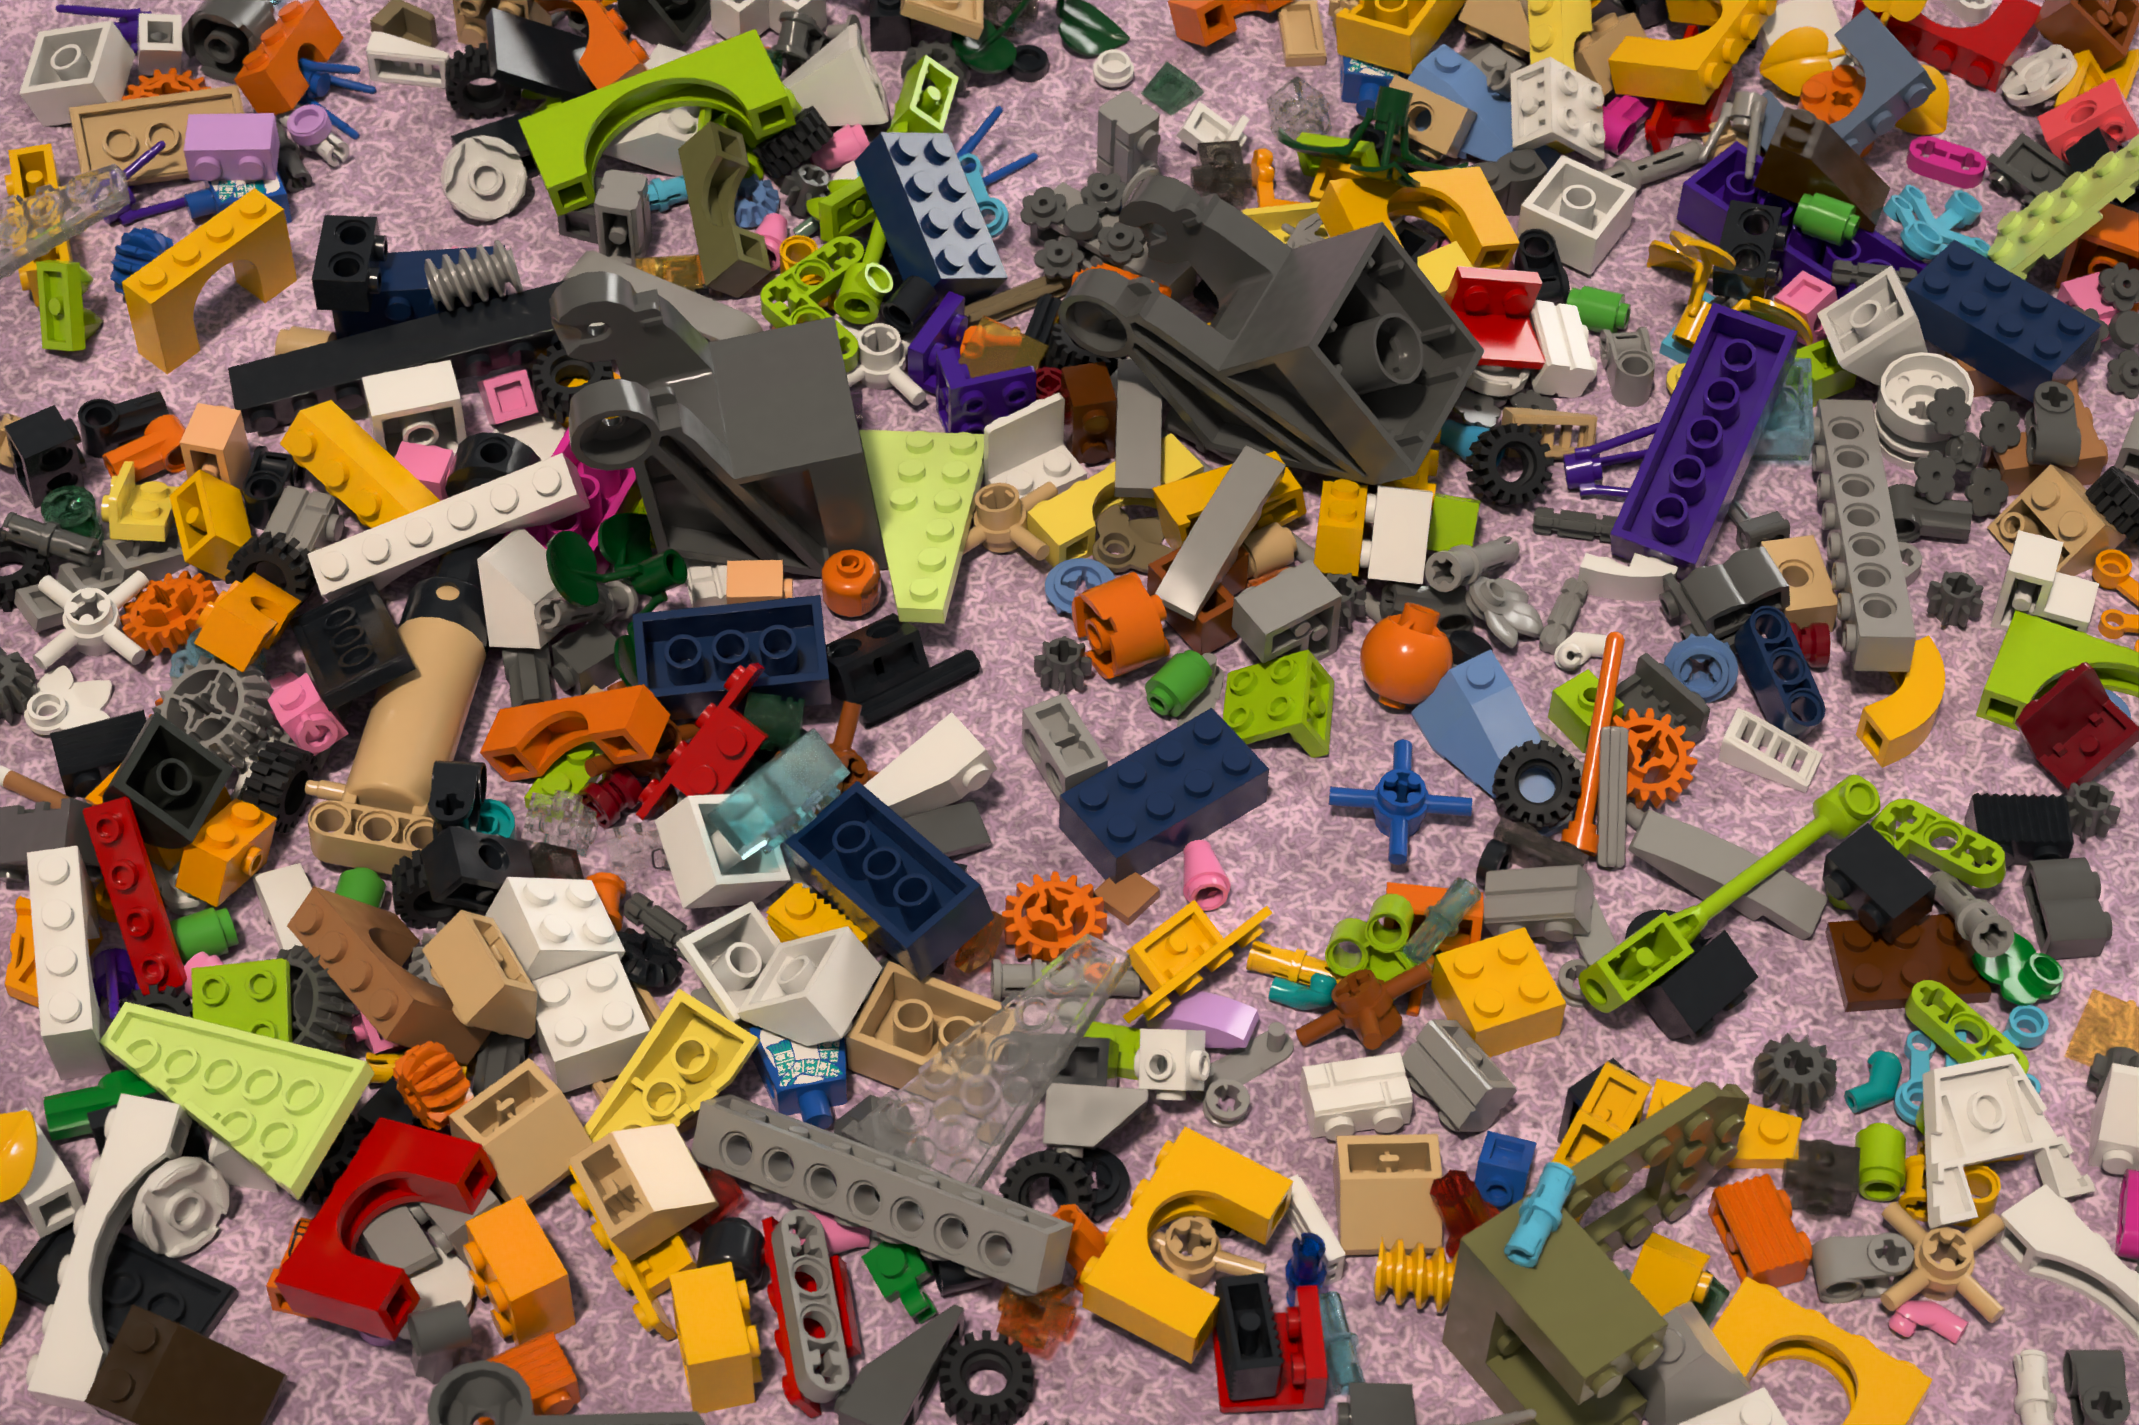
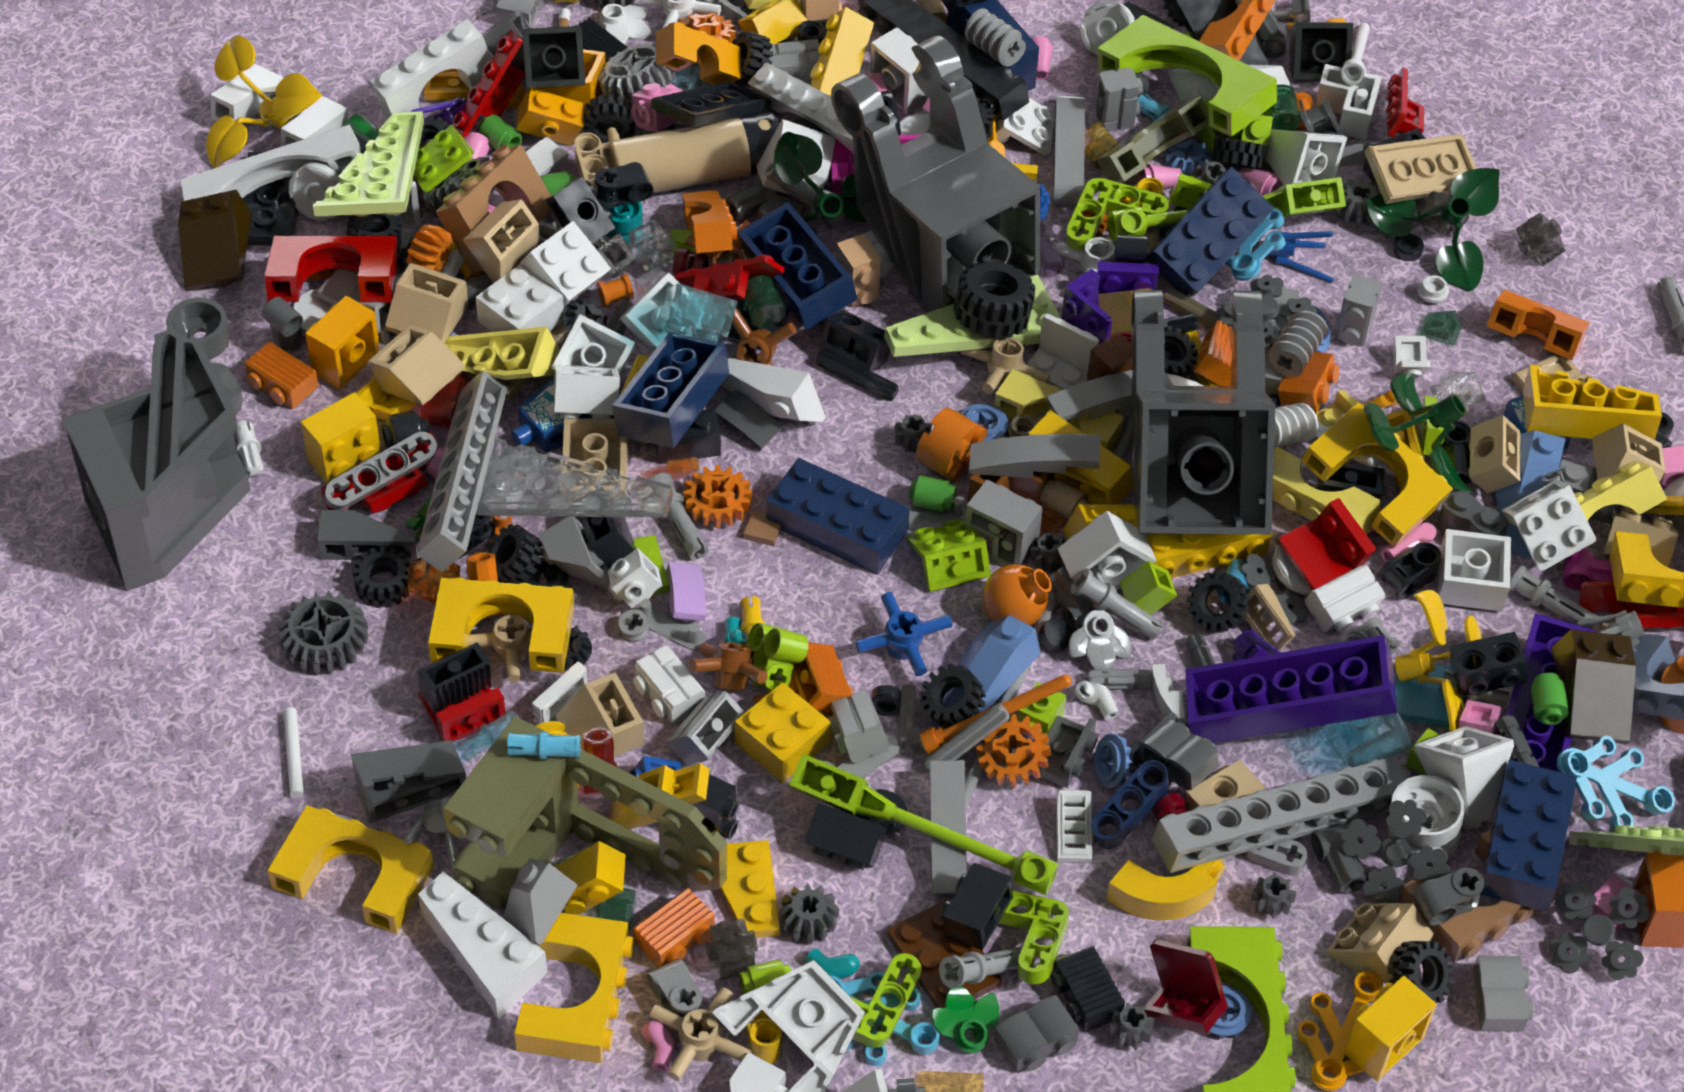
camera: 65 degrees right, 0 degrees up
(851, 583) = (908, 304): orange head -> none
(927, 471) = (994, 299): none -> black tyre
(1060, 744) = (843, 448): light grey brick -> none
(1179, 949) = (721, 558): yellow bracket -> none
(1204, 876) = (792, 558): bright pink cone -> none
(1221, 171) = (1371, 370): clear smoke brick -> none
(1306, 1264) = (518, 692): clear blue pin -> none
(1442, 920) = (800, 670): clear light blue axle -> none
(1600, 308) = (1401, 613): bright green brick -> none
(1758, 529) = (1264, 766): dark grey piece -> none
(2040, 591) = (1304, 932): white brick -> none

